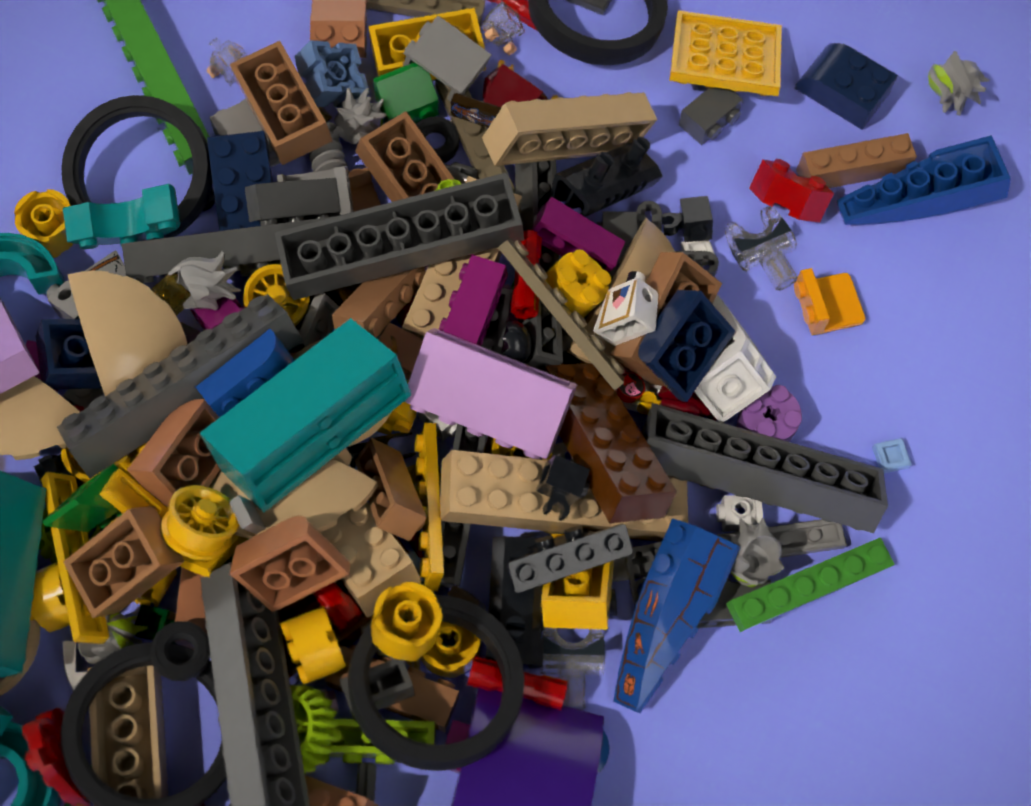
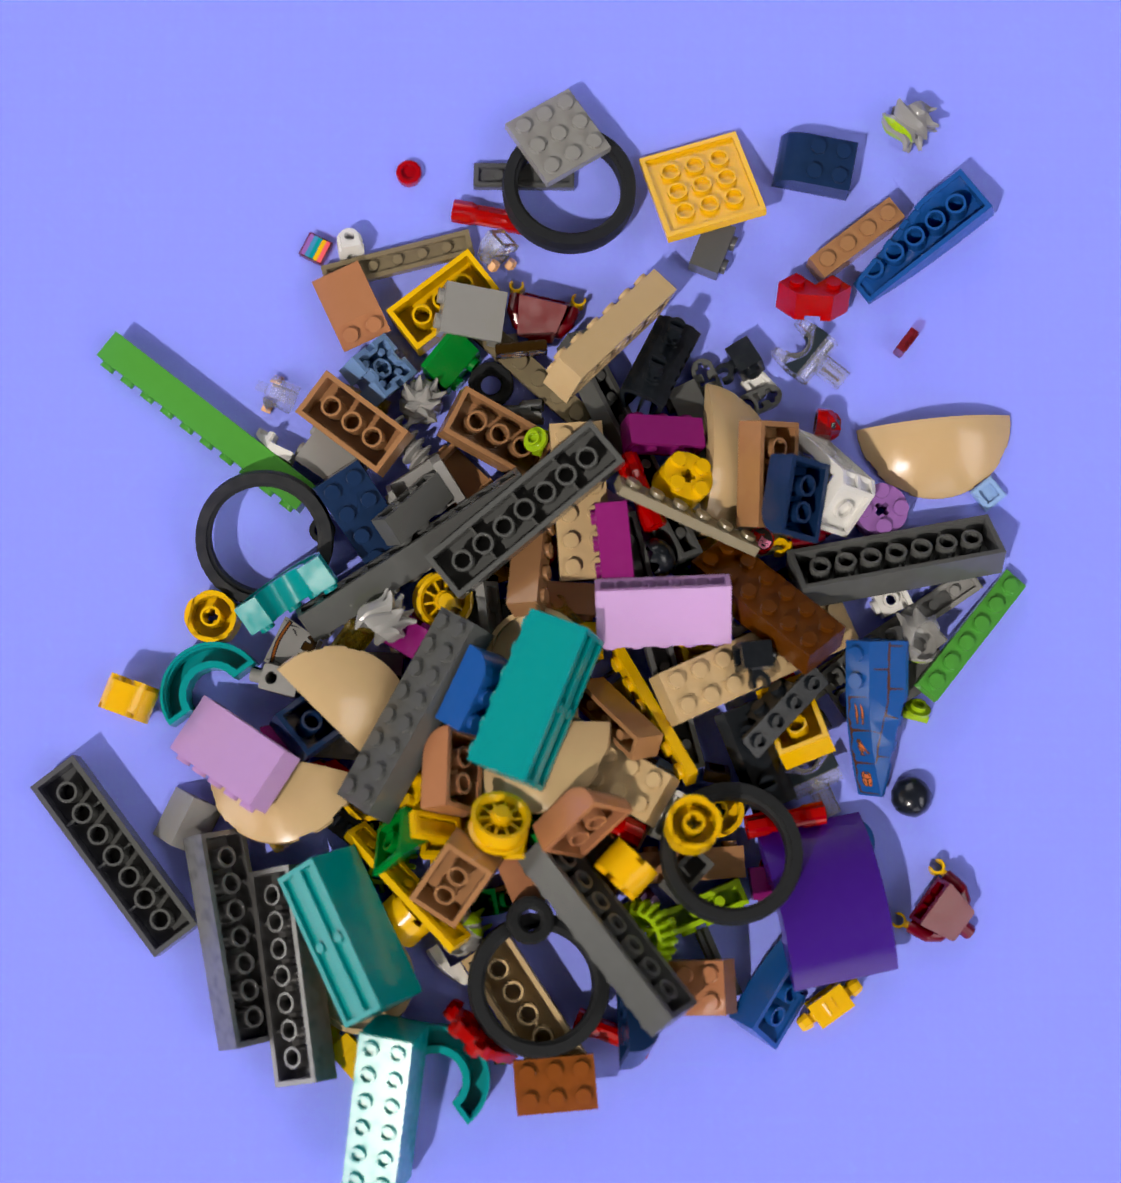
camera: 15 degrees left, 15 degrees up
(200, 99) = (269, 440): none -> white slope
(247, 514) = (531, 800): light grey tile -> none
(628, 310) = (738, 487): white torso -> none
(670, 731) = (911, 797): none -> black hair
(717, 640) = (916, 710): none -> lime plate
(751, 313) = (826, 424): none -> red rock
(828, 302) = (885, 382): light orange bracket -> none
(855, 391) = (936, 454): none -> tan brick
(867, 274) = (905, 343): none -> clear red tile

